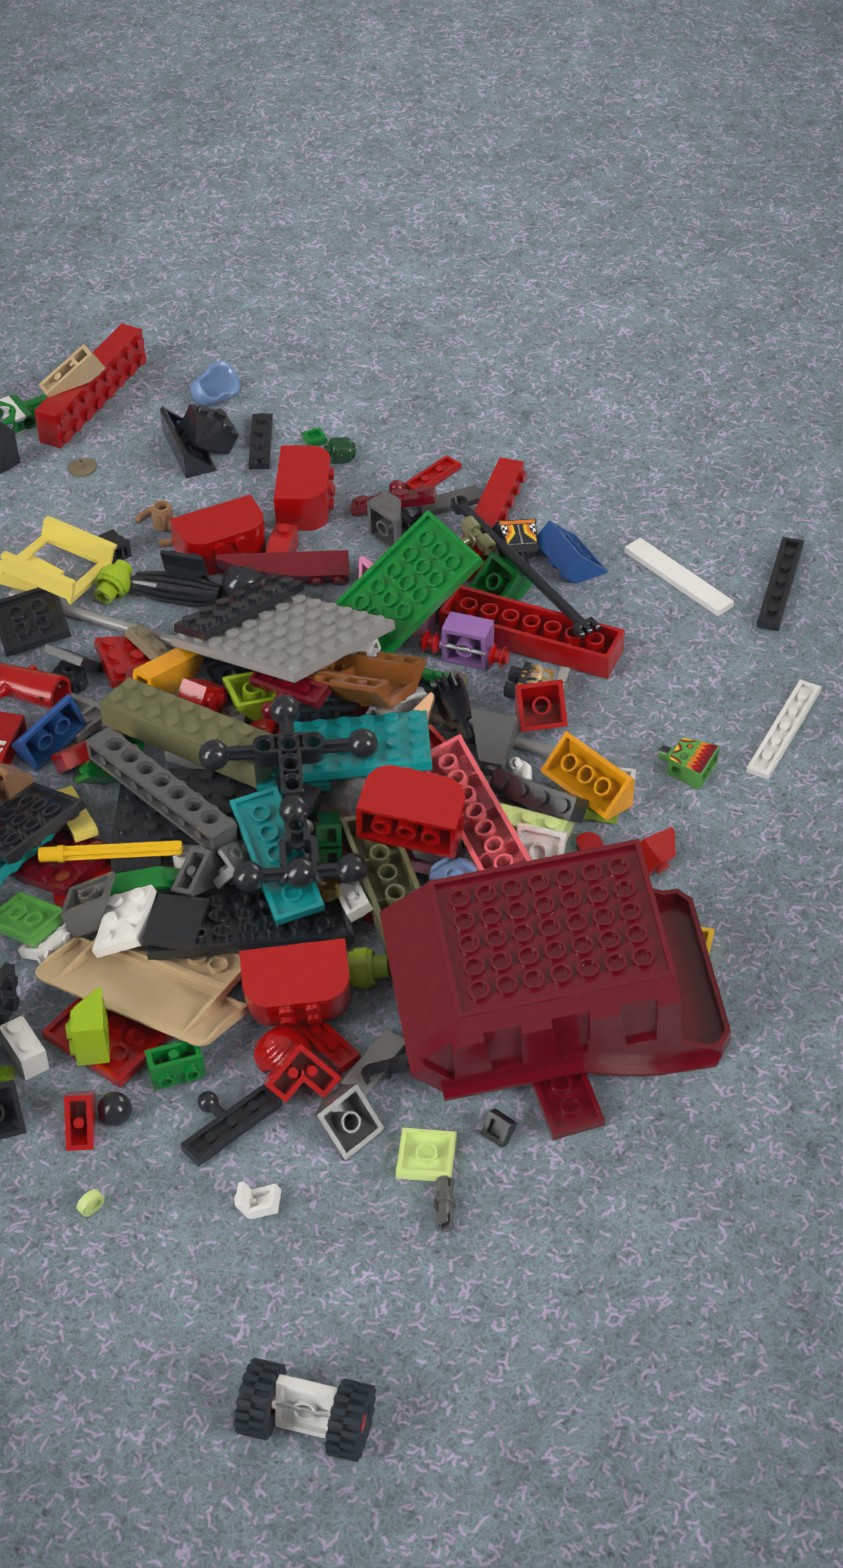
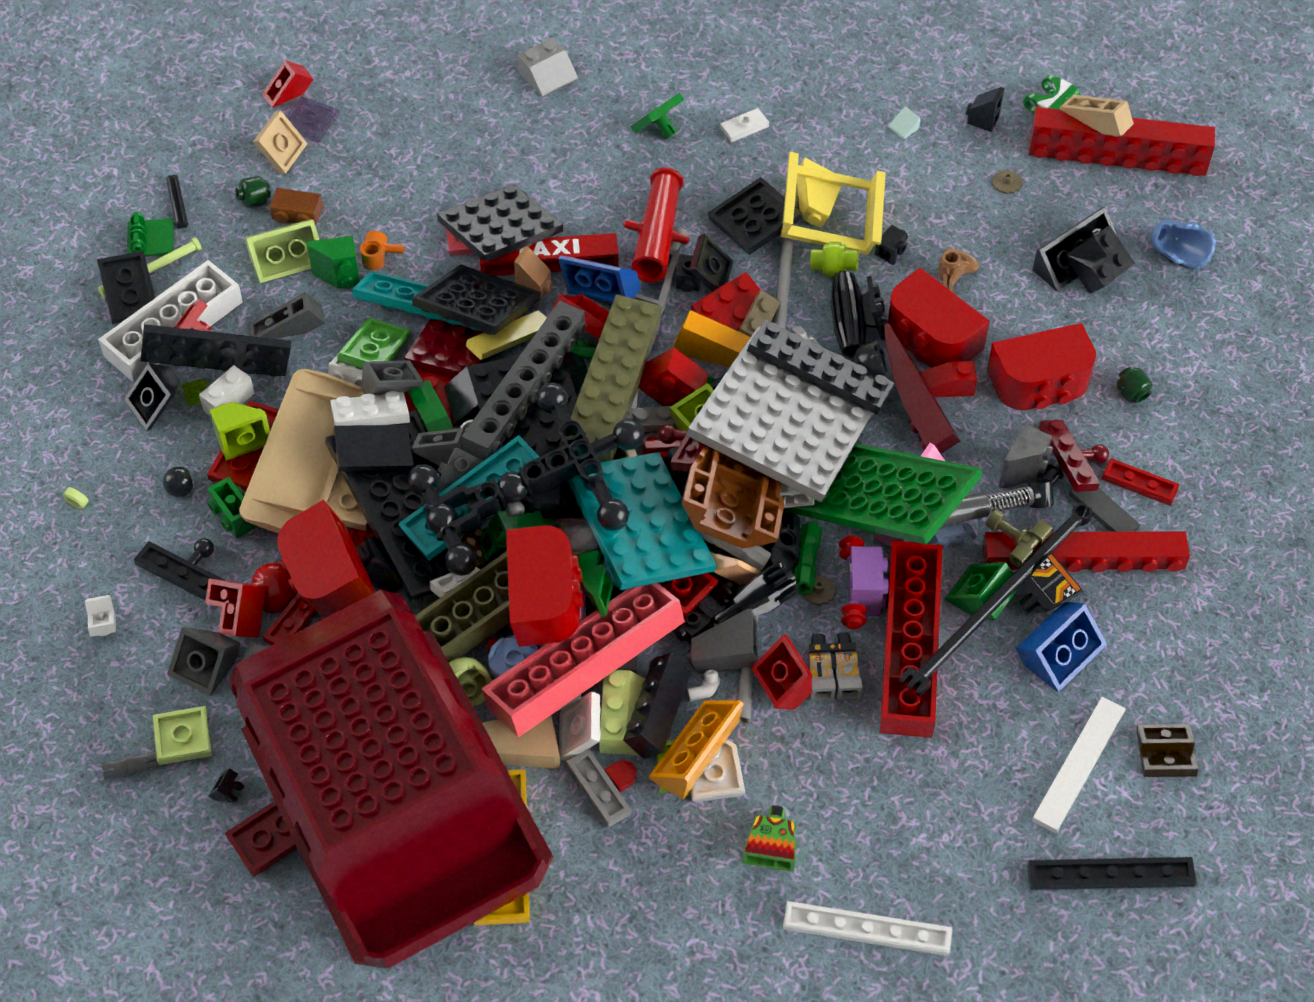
camera: 70 degrees right, 10 degrees up
(80, 1120) = (160, 458): red slope -> none
(110, 851) = (441, 341): yellow axle -> none
(260, 441) = (1121, 312): black plate -> none
(314, 437) = (1150, 357): green tile -> none
(659, 850) = (618, 836): red slope -> none
(683, 529) = (1167, 750): none -> dark brown slope

